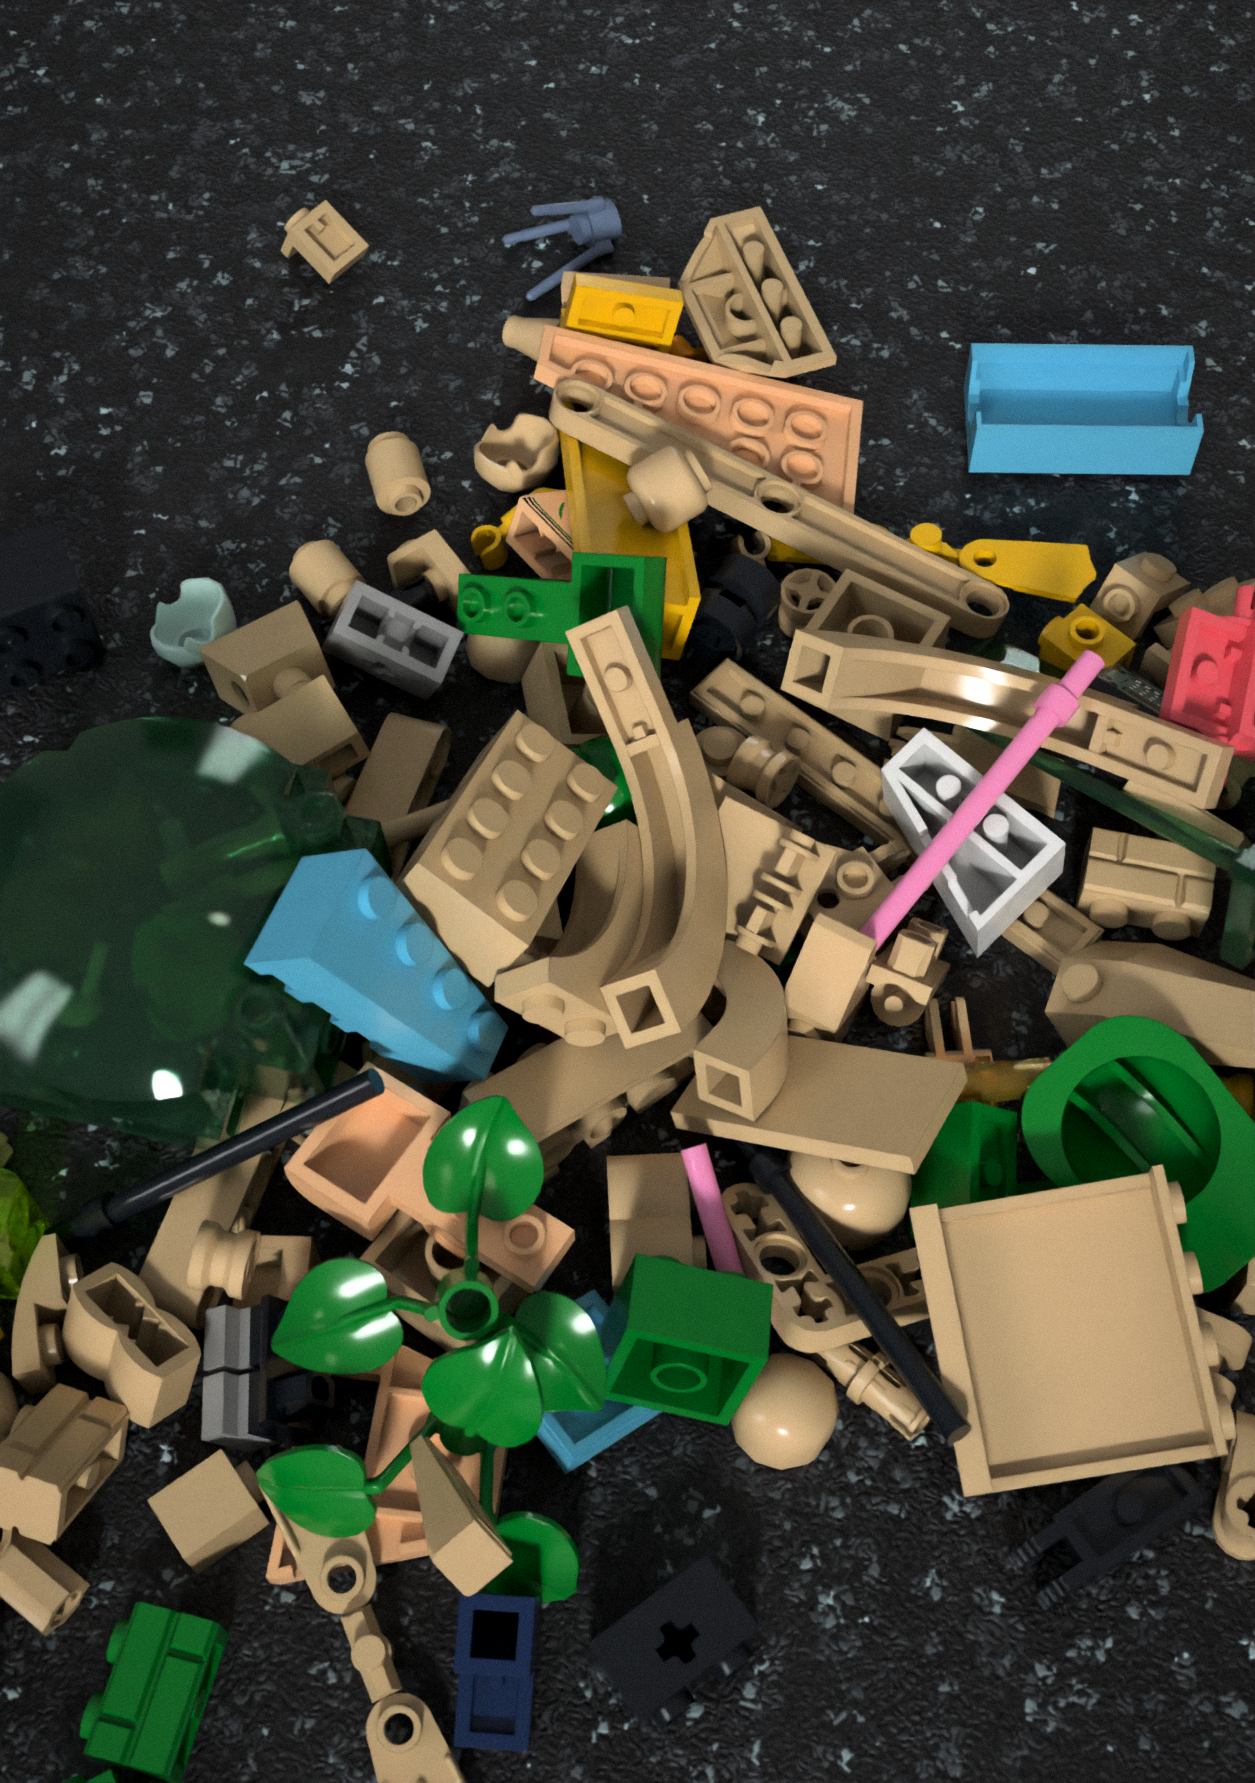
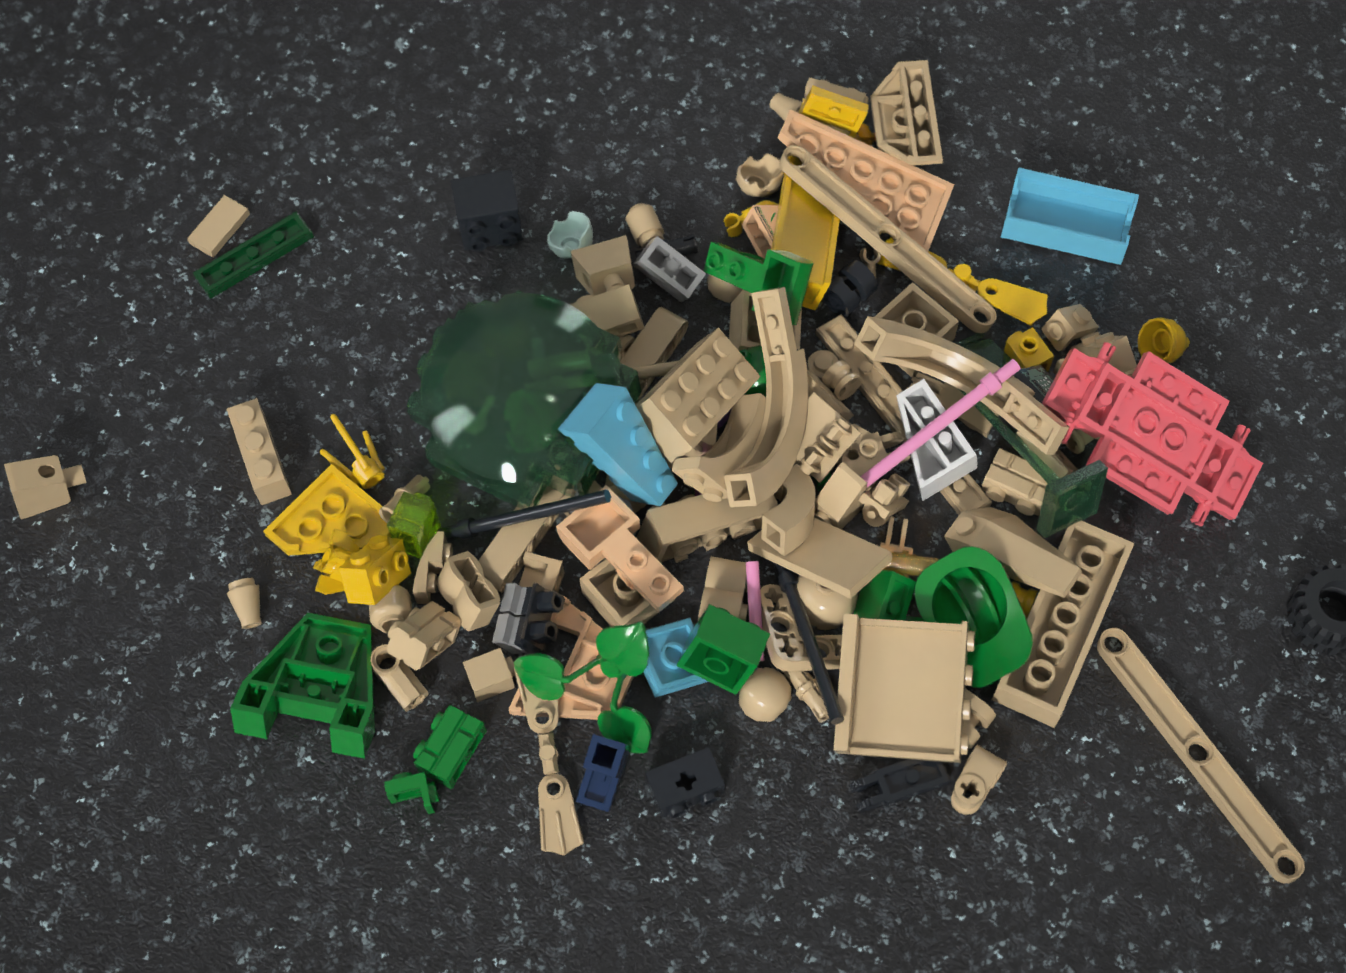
camera: 15 degrees right, 5 degrees up
(223, 1259) = (519, 562): tan wheel -> none
(323, 240) = (686, 25): tan bracket -> none
(397, 474) = (694, 173): tan brick -> none
(432, 559) = (701, 228): tan bracket -> none
(454, 1522) = (597, 703): tan slope -> none
(475, 1165) = (647, 547): green plant -> none
(591, 223) = (835, 45): sand blue plant -> none
(667, 489) = (829, 219): tan head -> none
(797, 593) = (887, 287): tan wheel -> none

